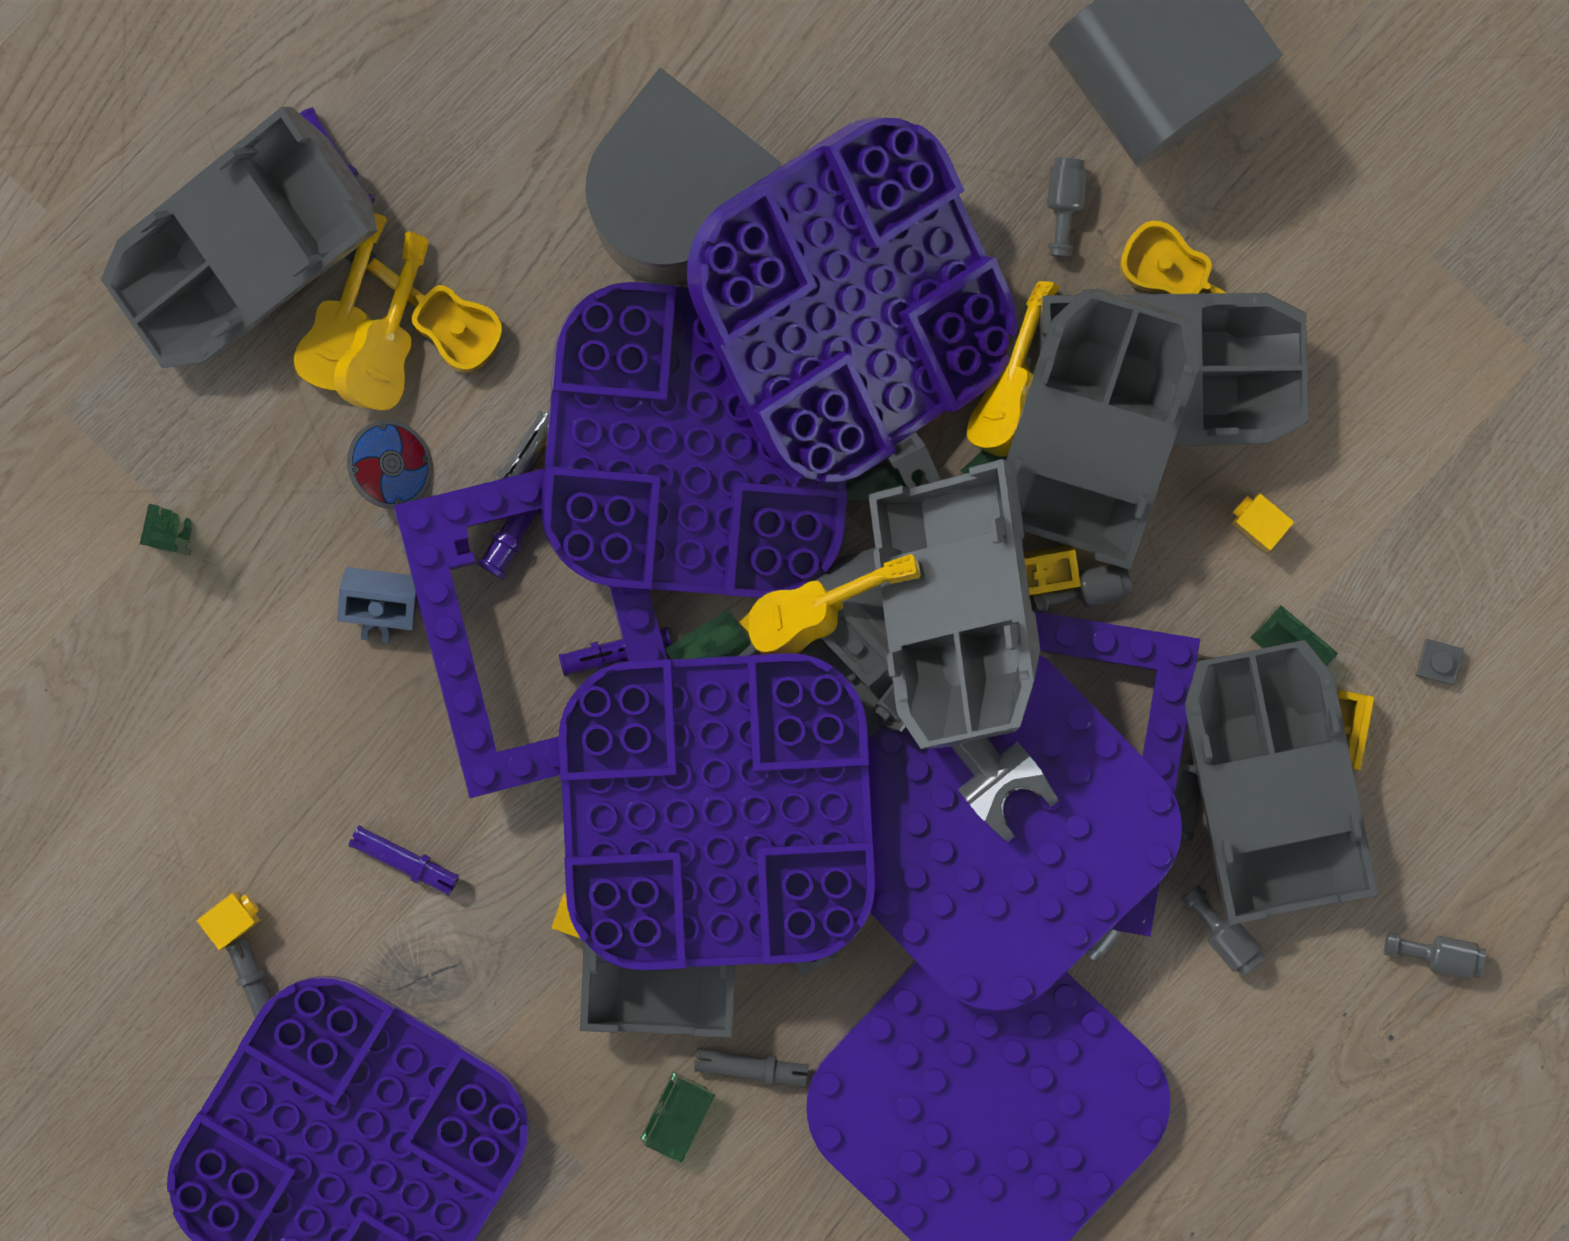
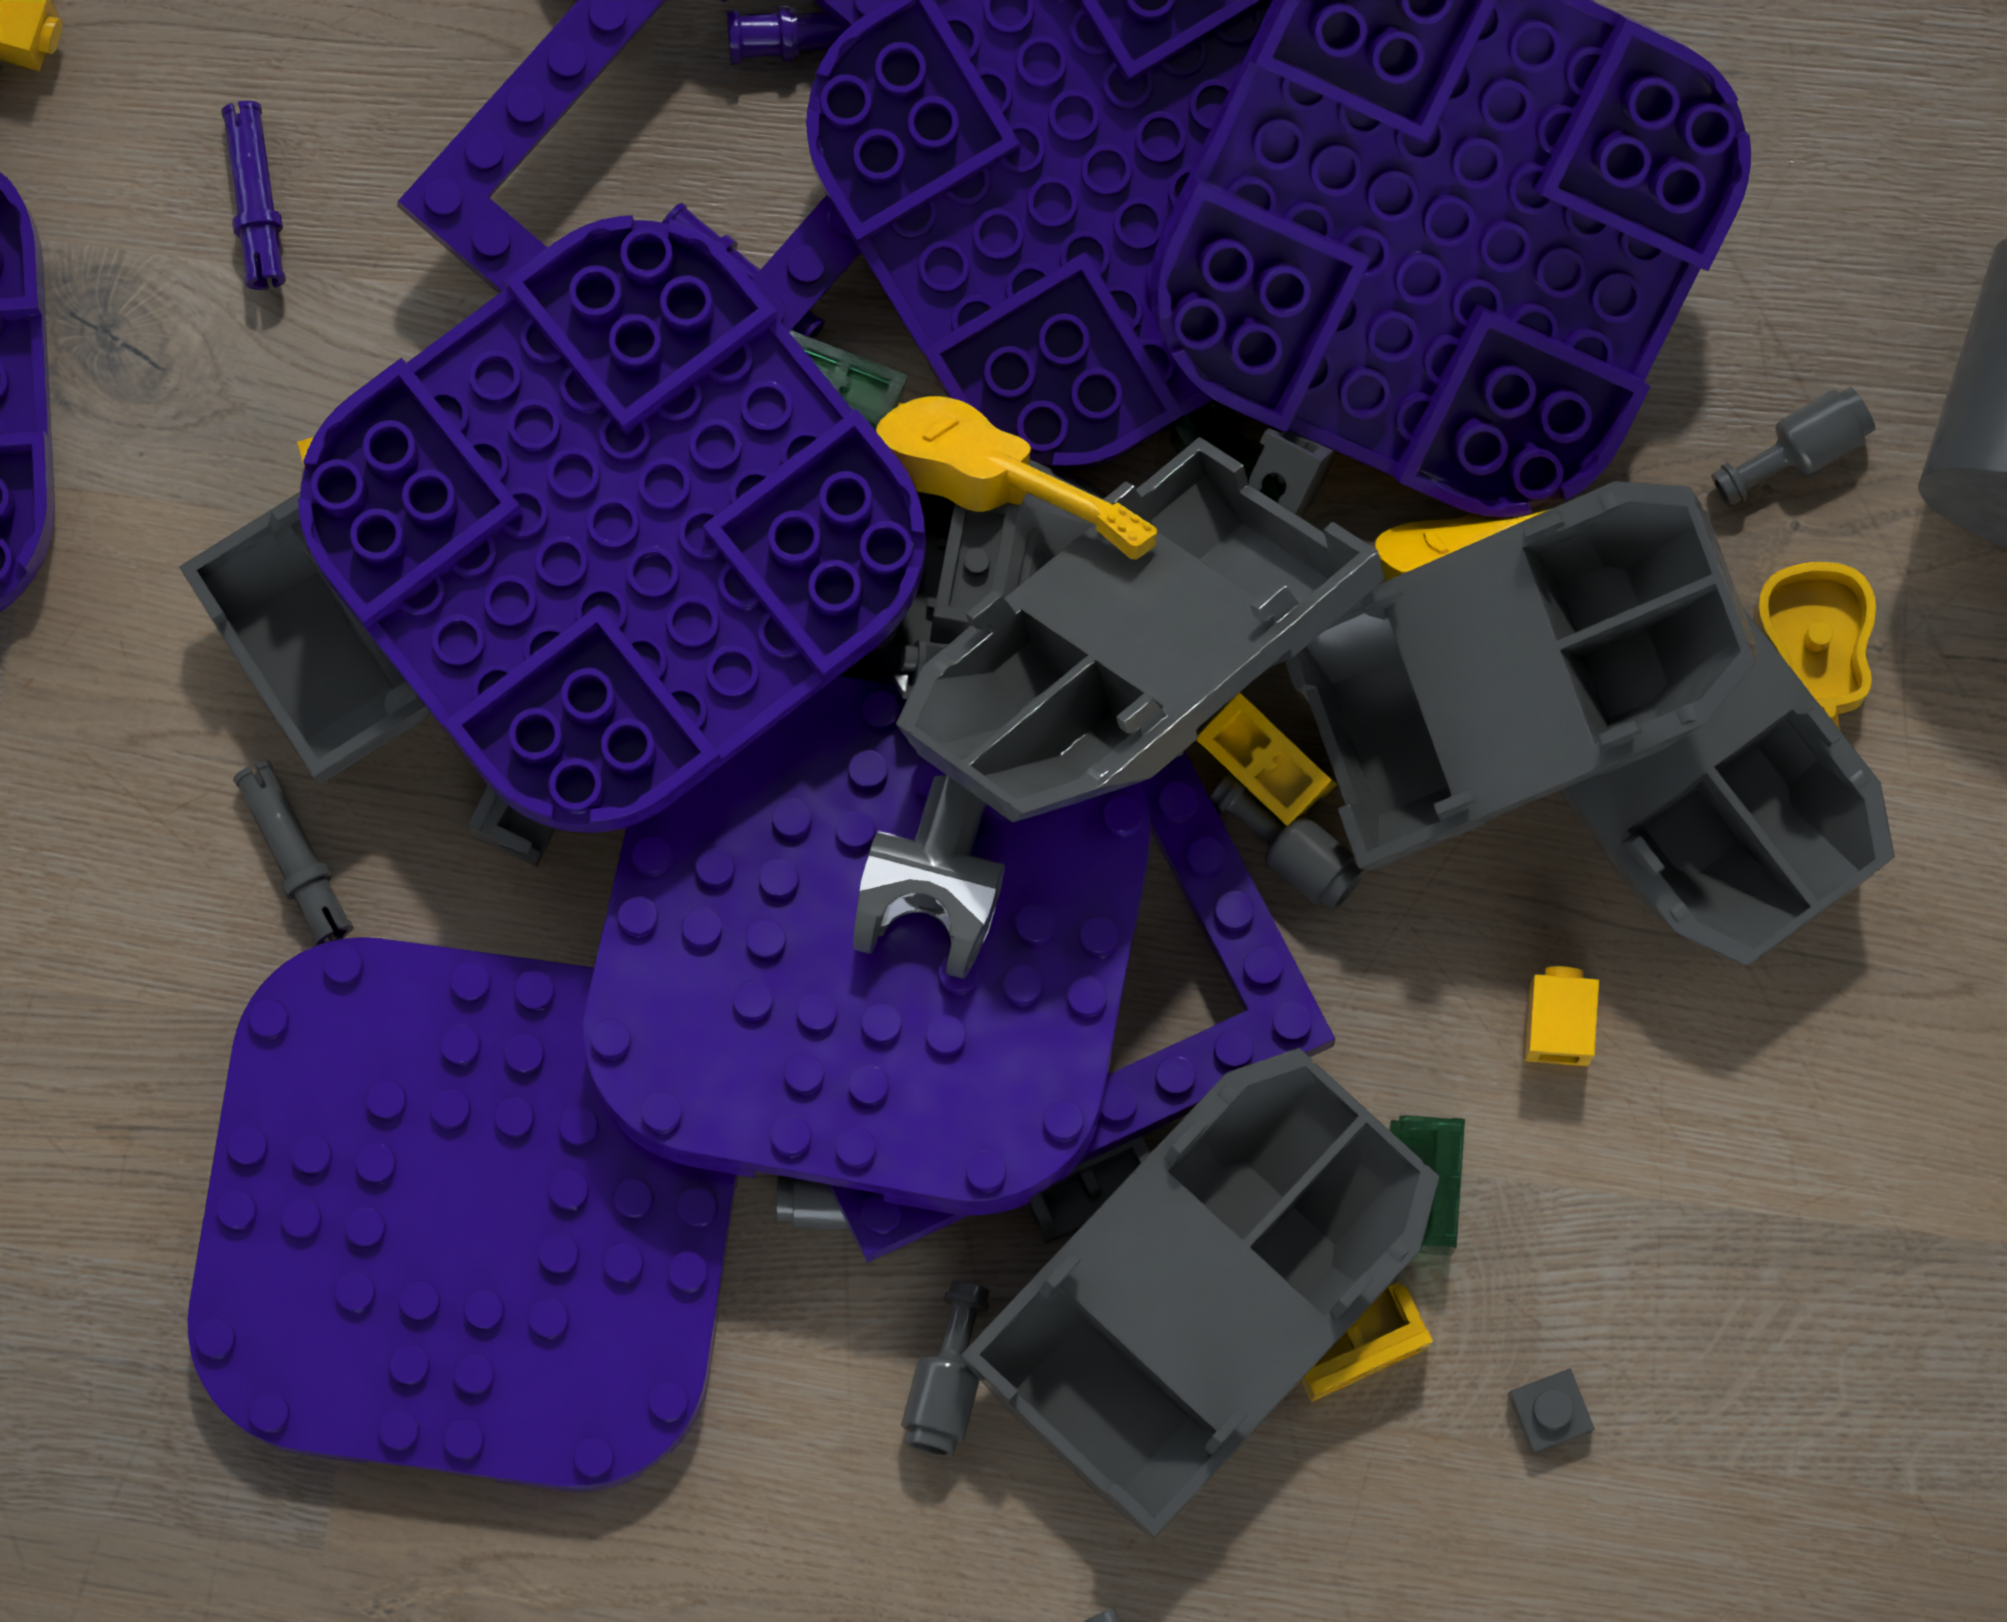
camera: 50 degrees right, 10 degrees down
(677, 1117) = (152, 798): clear green hinge -> none

